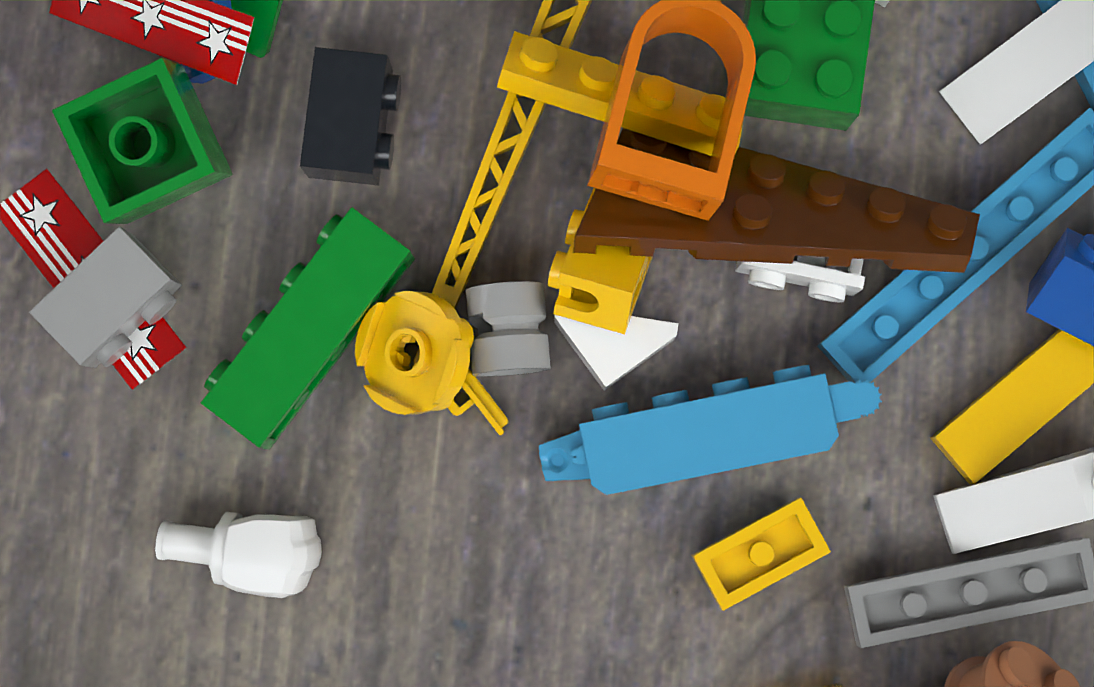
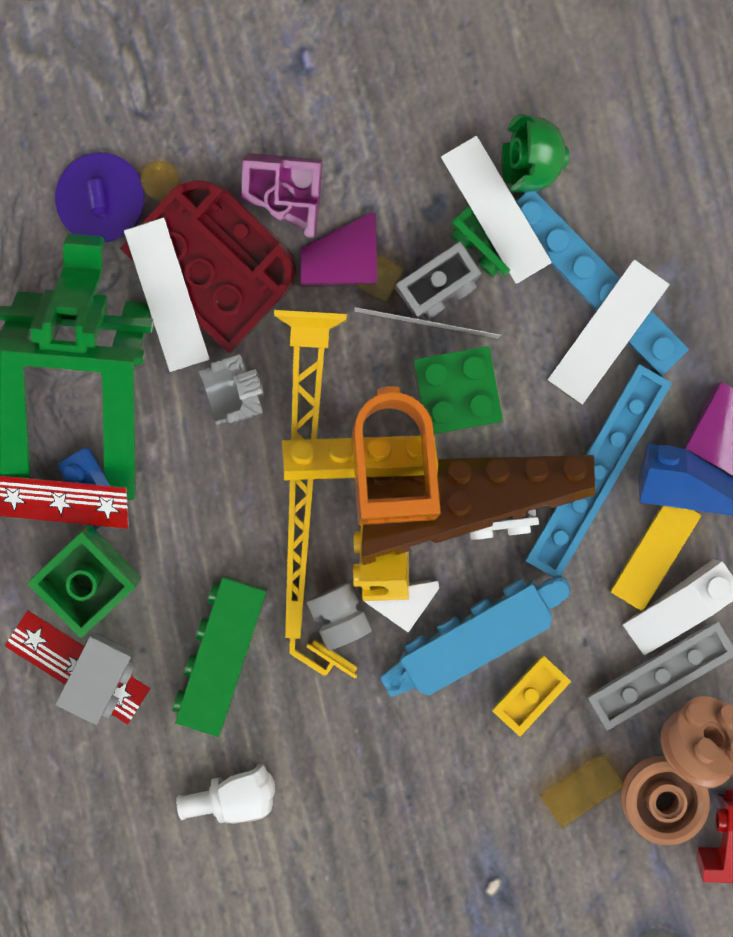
camera: 20 degrees left, 5 degrees up
(349, 116) = (200, 520): black brick -> none
(443, 357) = (304, 639): yellow plate -> none

